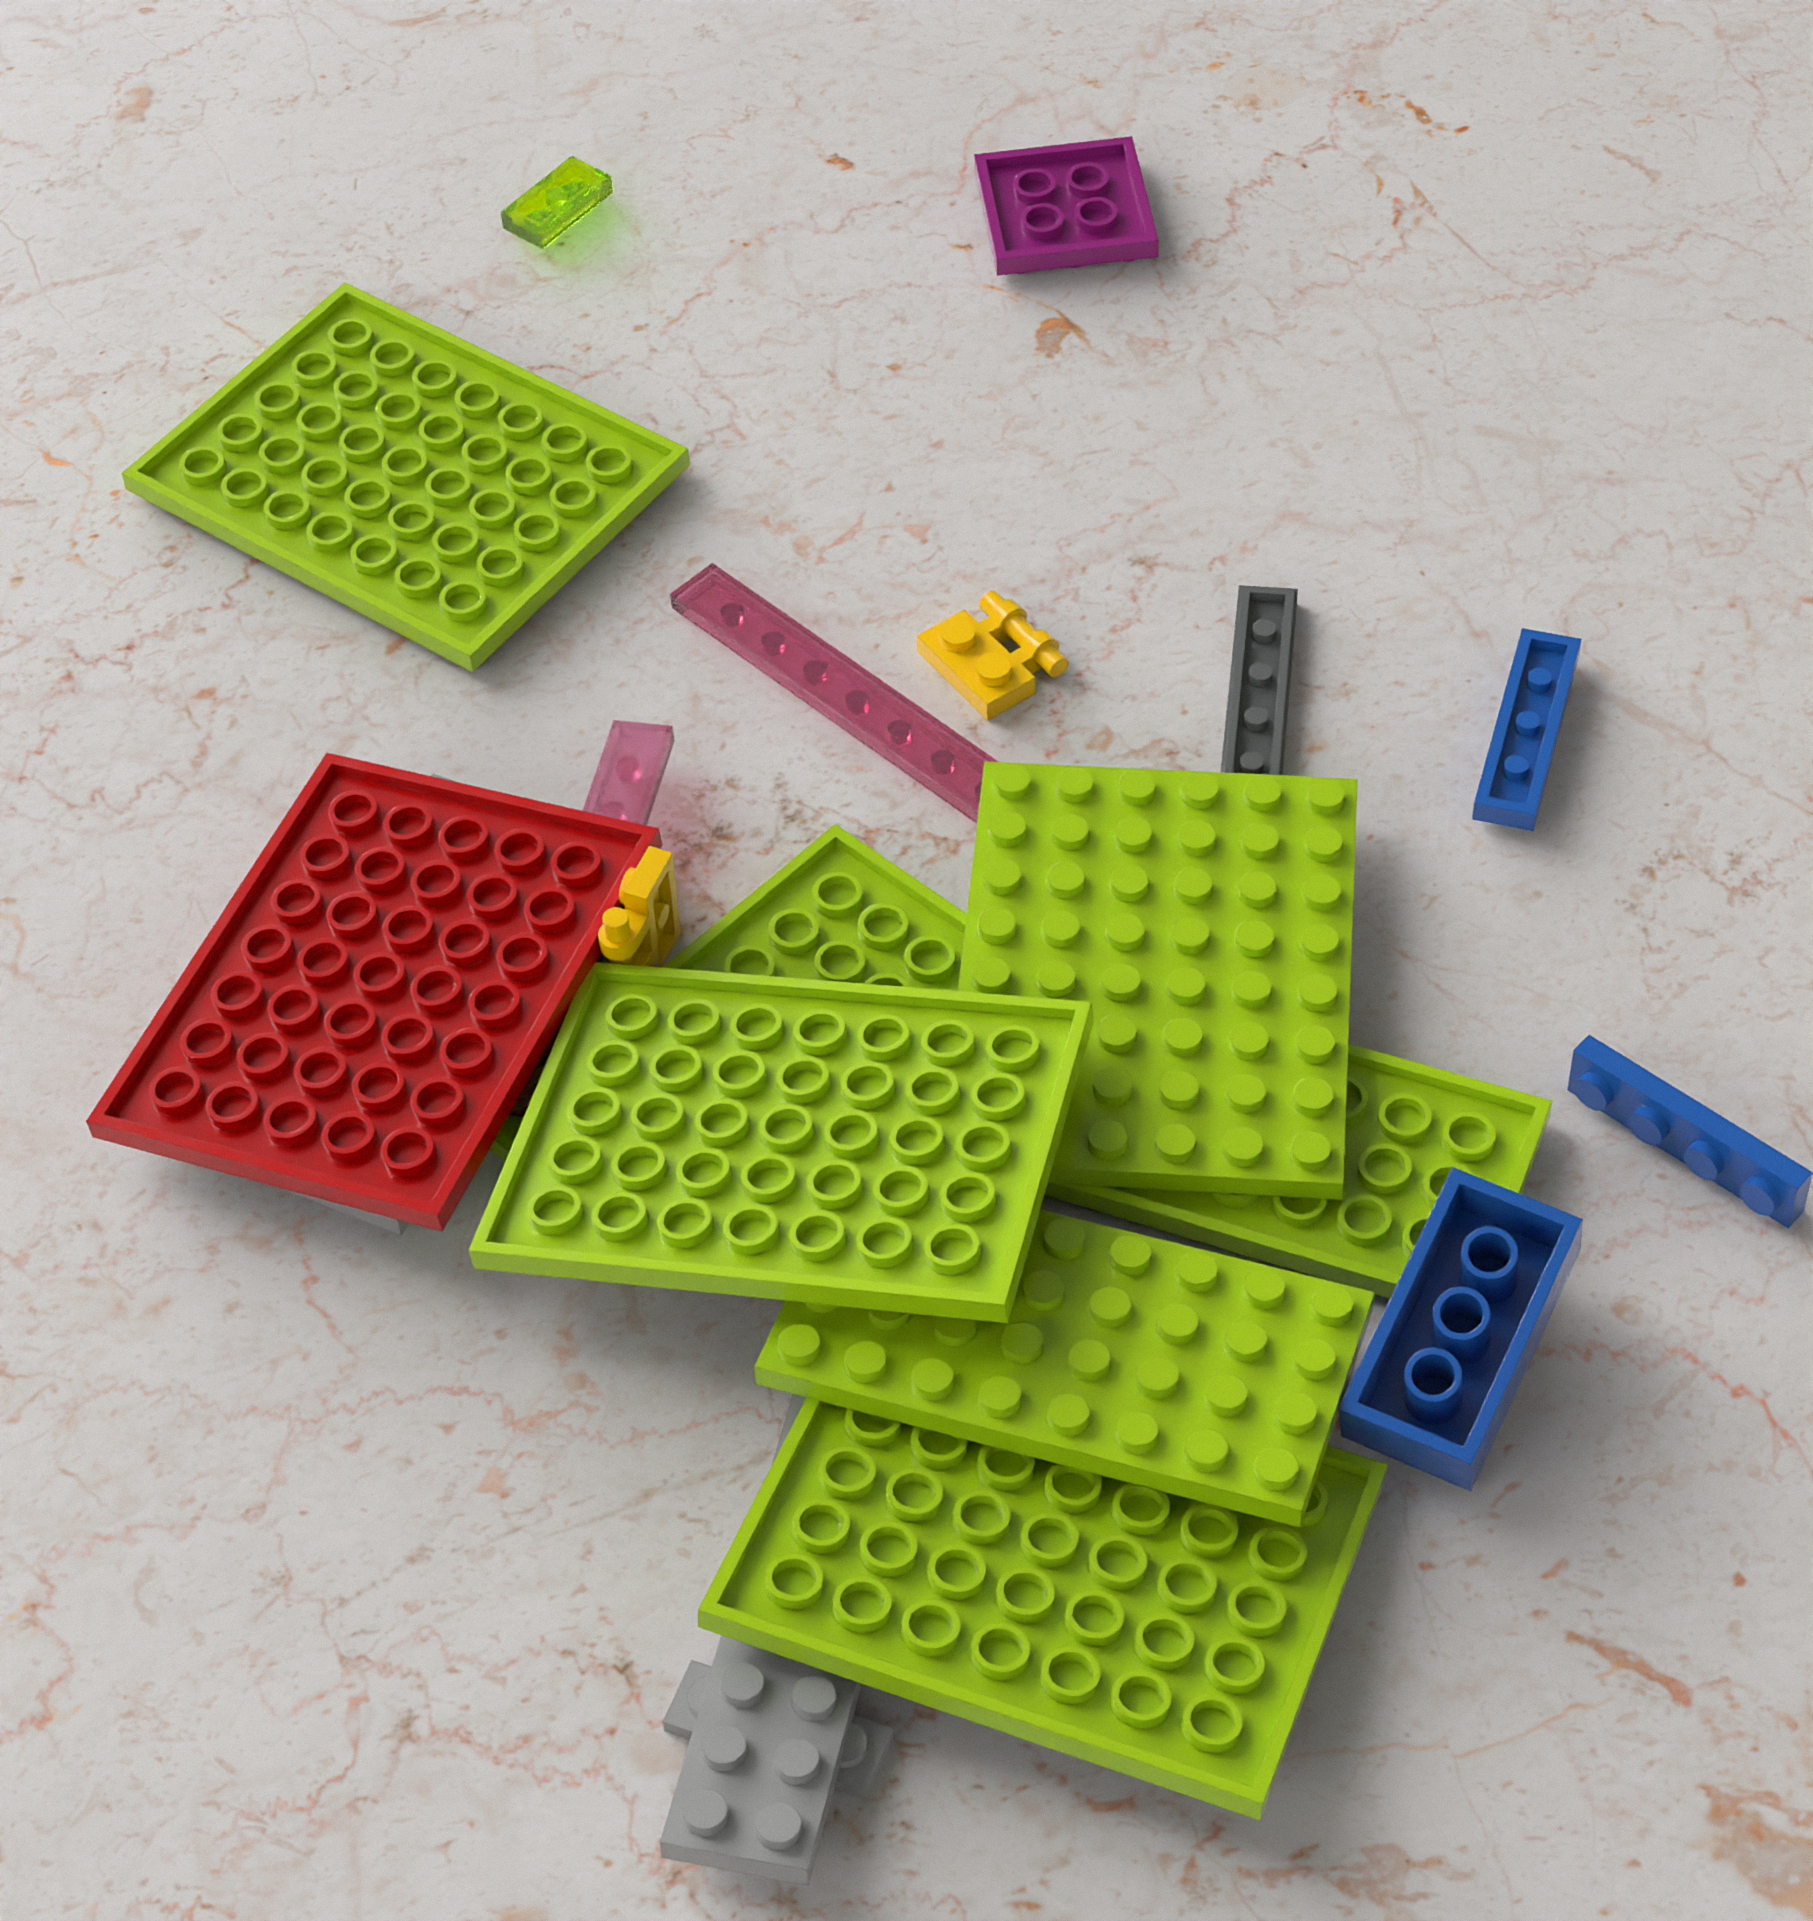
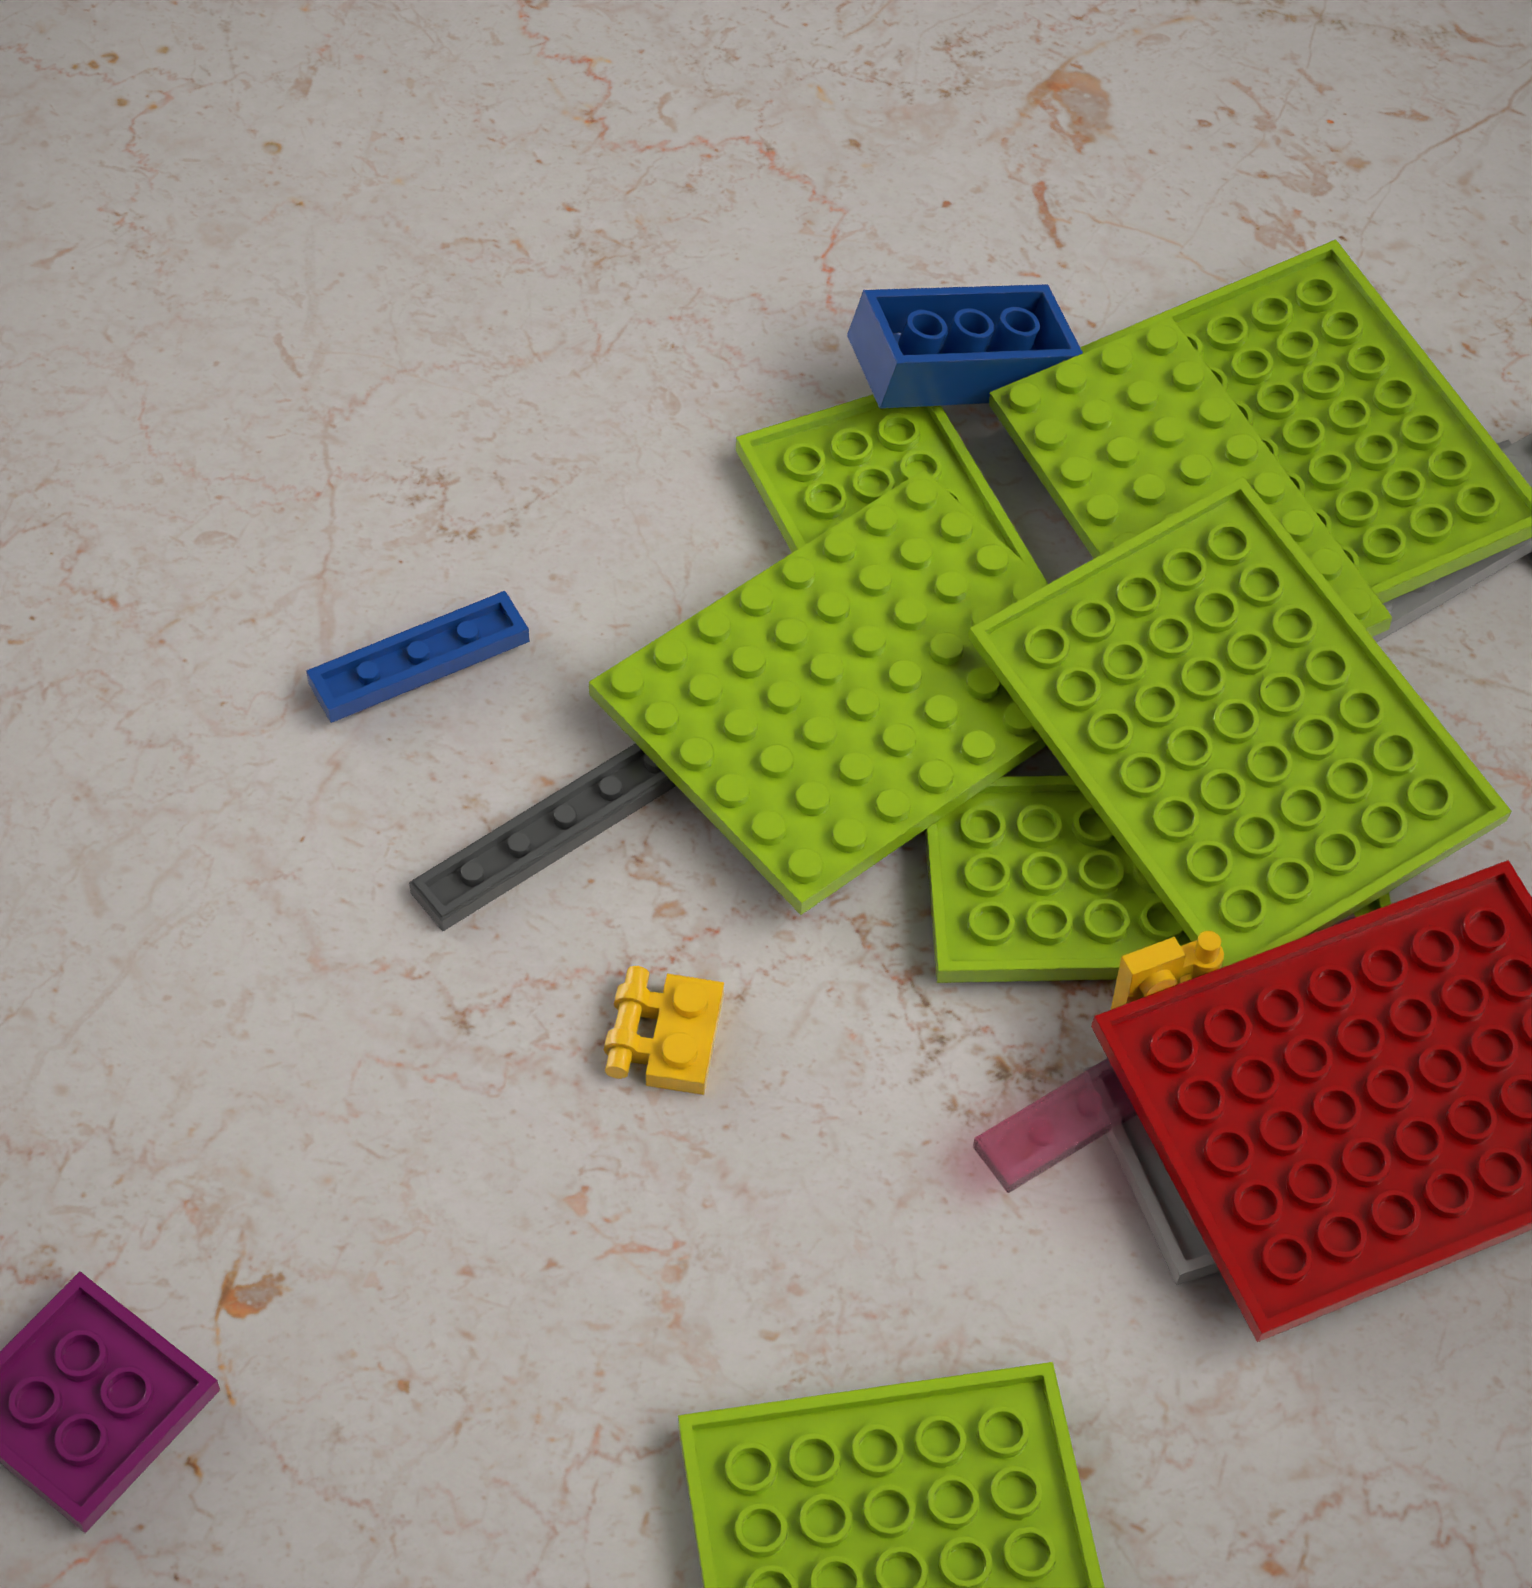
camera: 140 degrees left, 5 degrees up
(835, 686) = (801, 1104): clear pink tile -> none
(1689, 1131) = (689, 386): blue plate -> none

